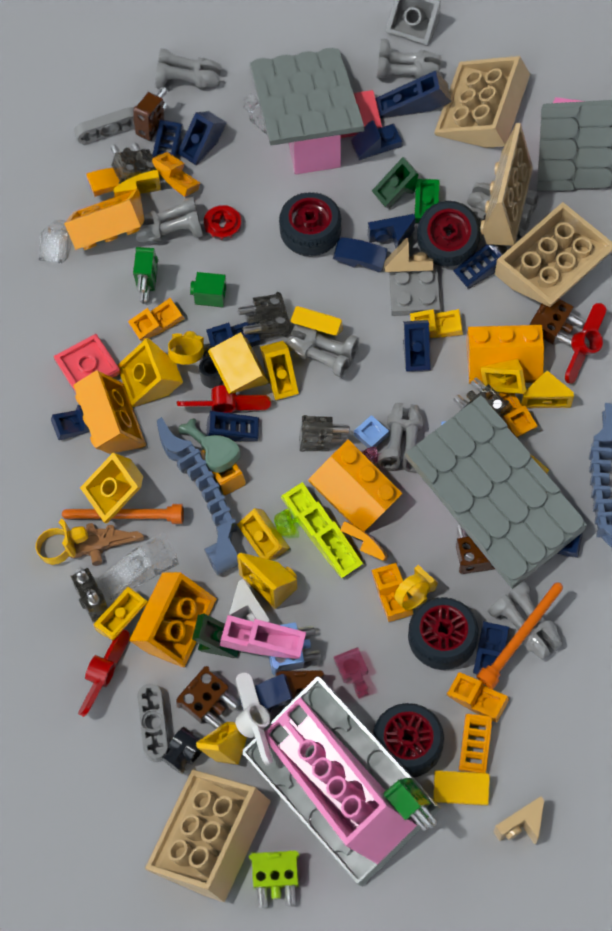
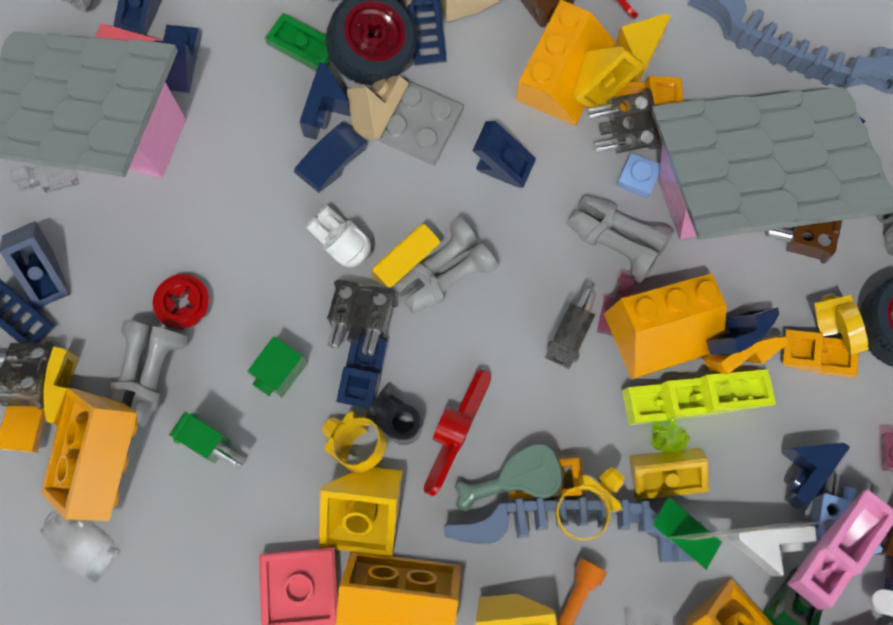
camera: 65 degrees left, 10 degrees up
(156, 321) = (280, 461): light orange slope -> none
(172, 171) = (62, 329): light orange slope -> none
(226, 550) = (675, 522): none -> green sticker
(232, 419) = (482, 464): dark blue slope -> none
(232, 488) = (609, 482): none -> yellow piece
(238, 364) = (420, 386): yellow slope -> none
(245, 579) = (744, 530): none -> white sticker
(267, 578) = (750, 495): yellow slope -> none
(279, 369) = (445, 336): yellow slope -> none
(307, 286) = (340, 238): none -> white piece
(310, 223) = (254, 193): black wheel -> none
(316, 615) = (818, 465): none -> dark blue slope
(371, 432) = (593, 269): light blue plate -> none
(380, 534) = (745, 331): none -> dark blue slope
(397, 181) = (259, 62): dark green slope -> none
(441, 324) = (482, 106): yellow slope -> none

